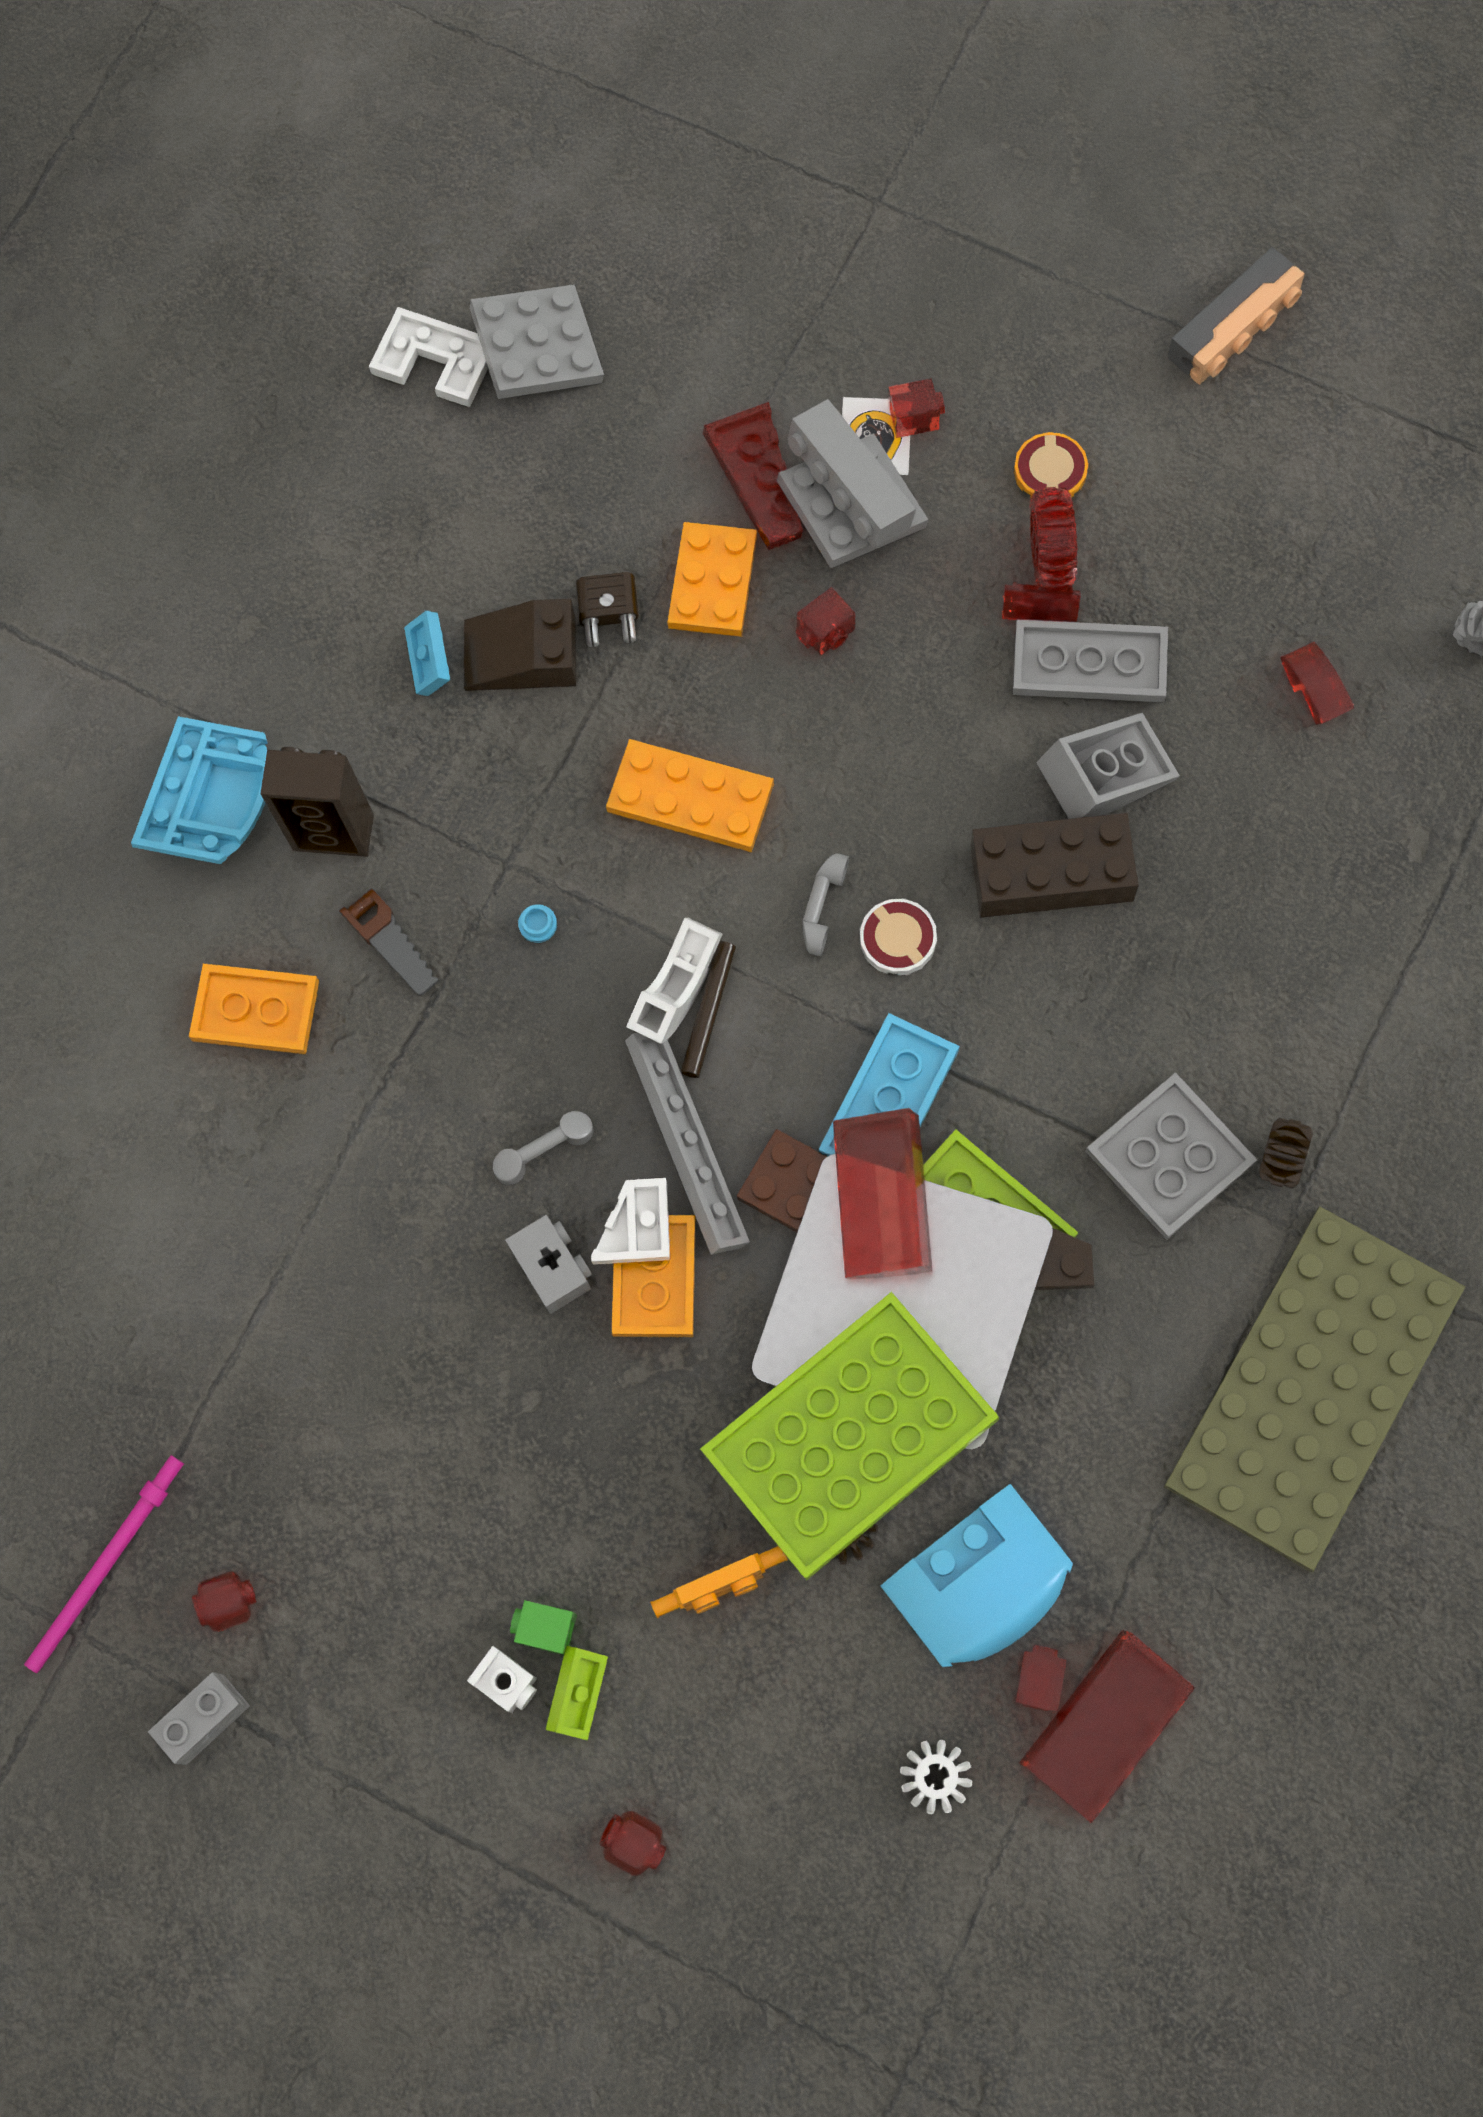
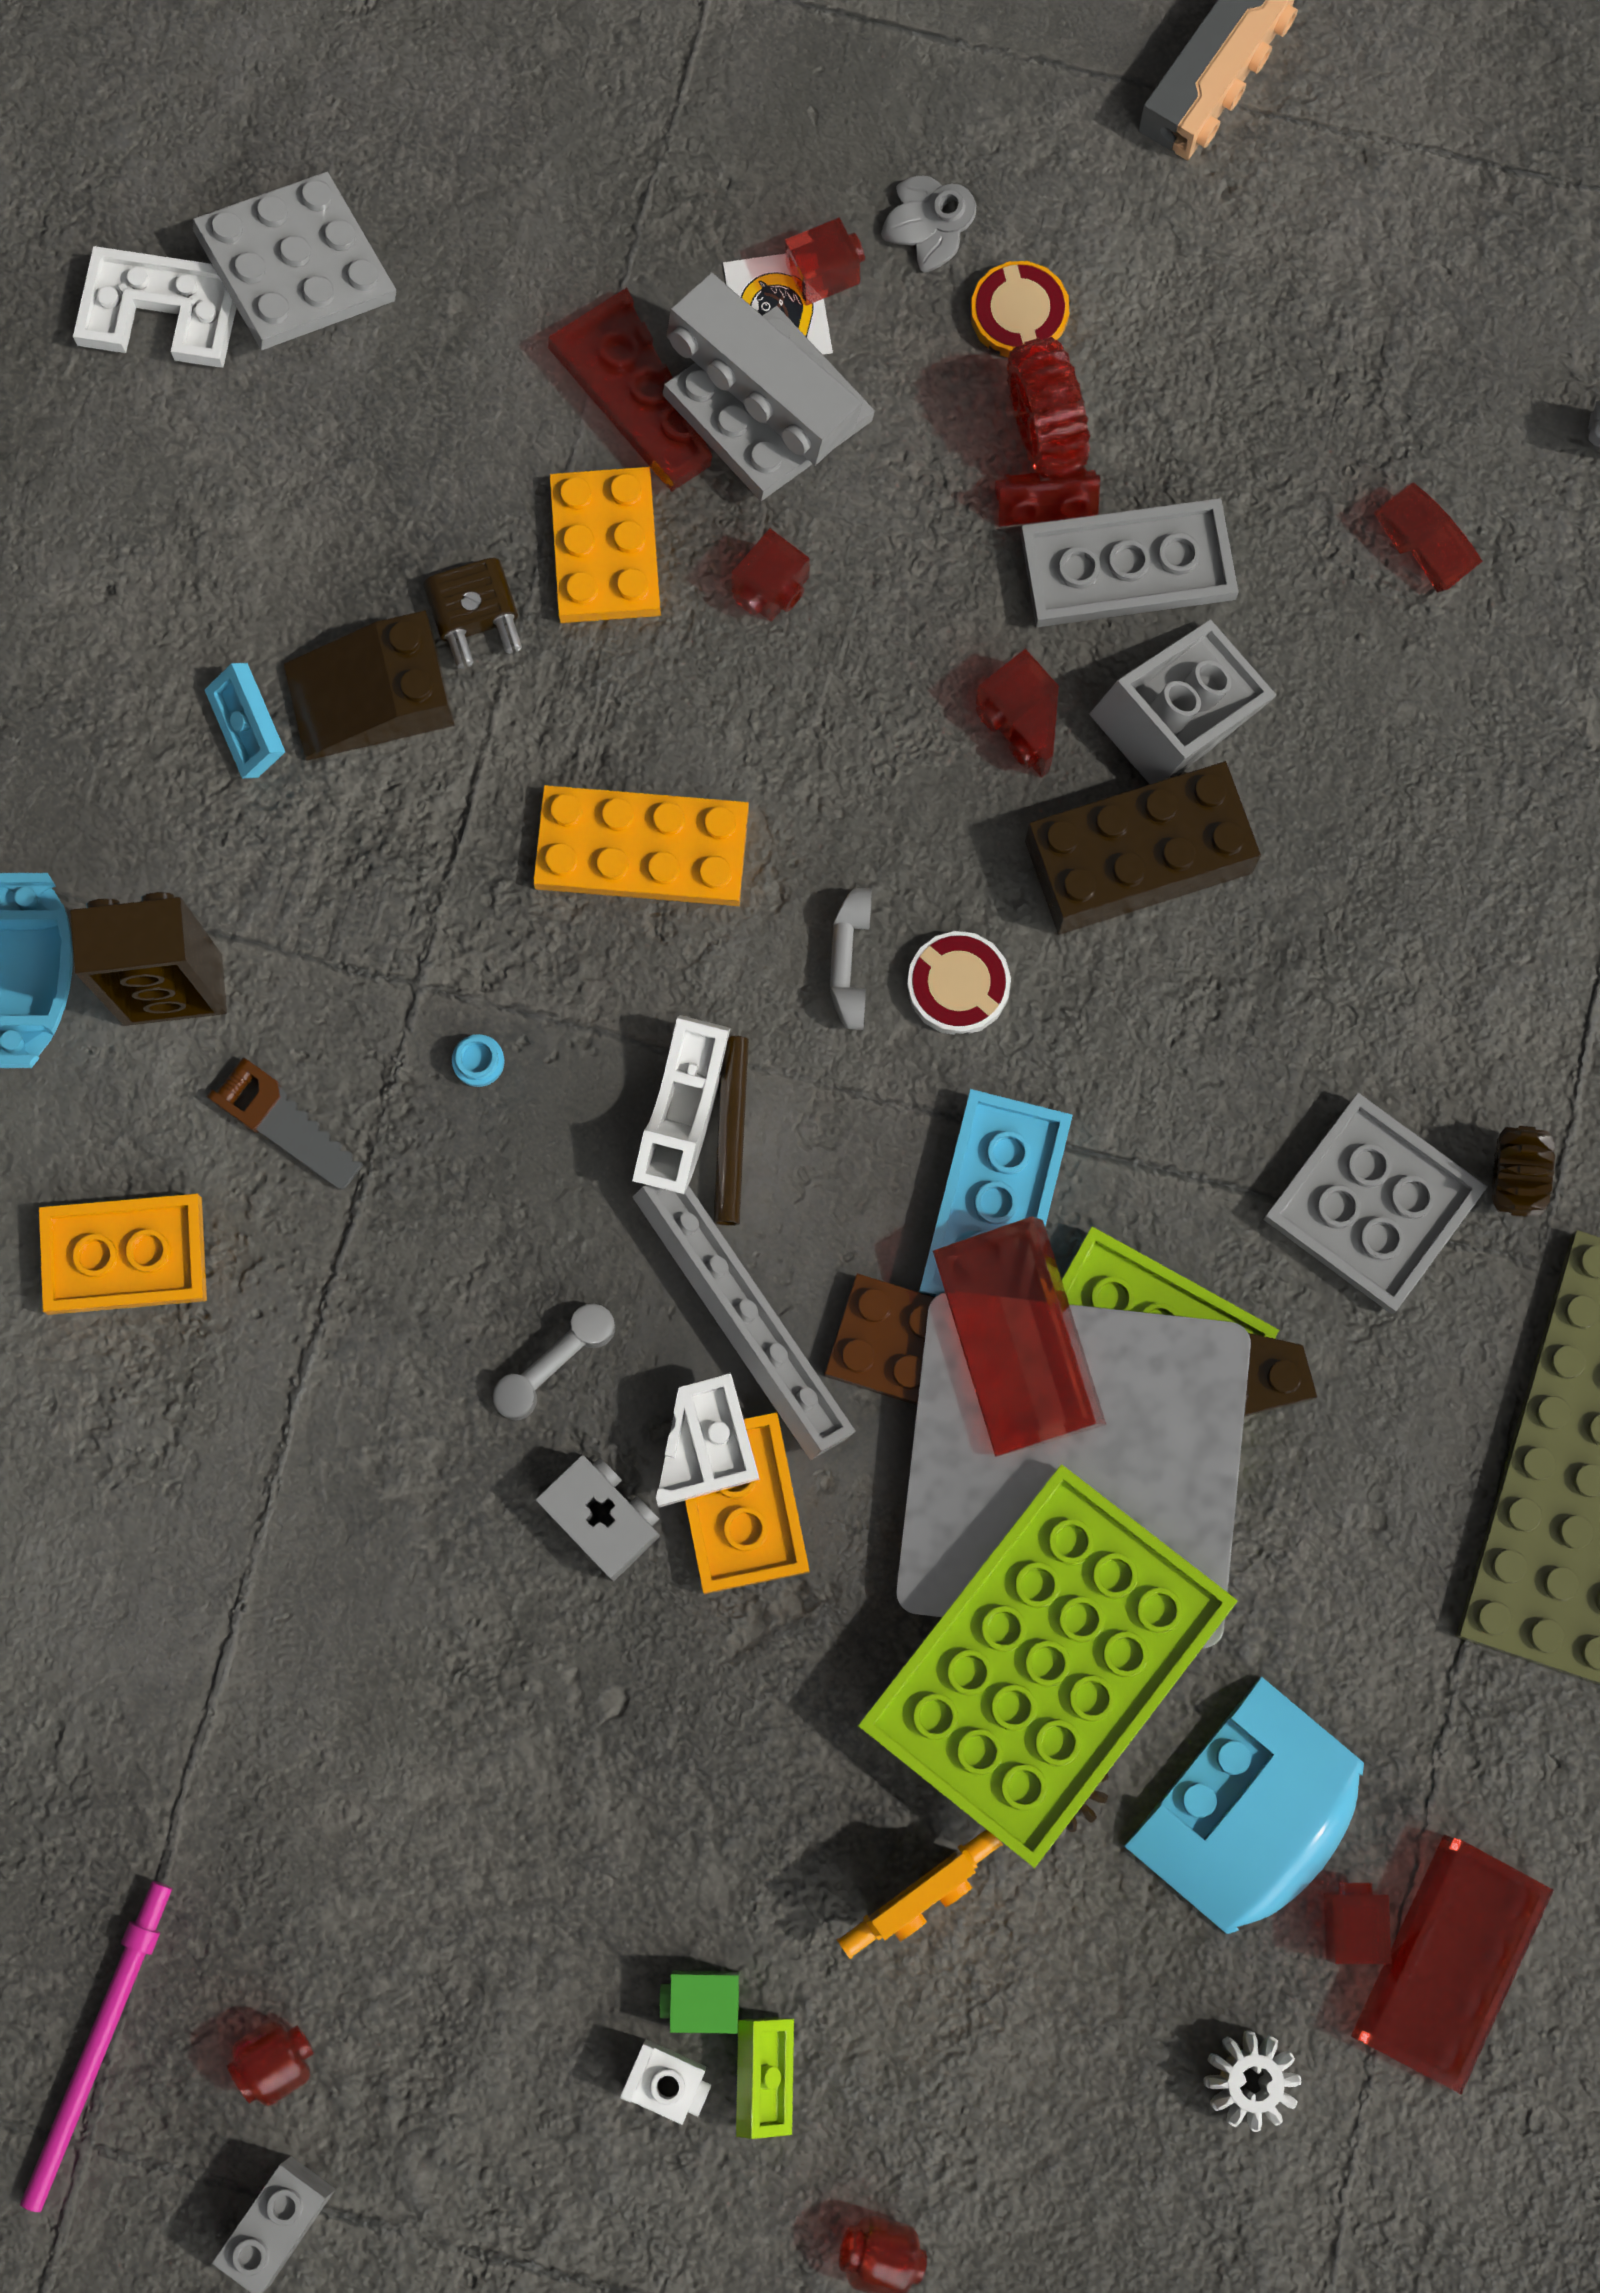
camera: 20 degrees left, 5 degrees up
(989, 748) = (1023, 706): none -> clear red slope
(994, 393) = (923, 222): none -> light grey plate

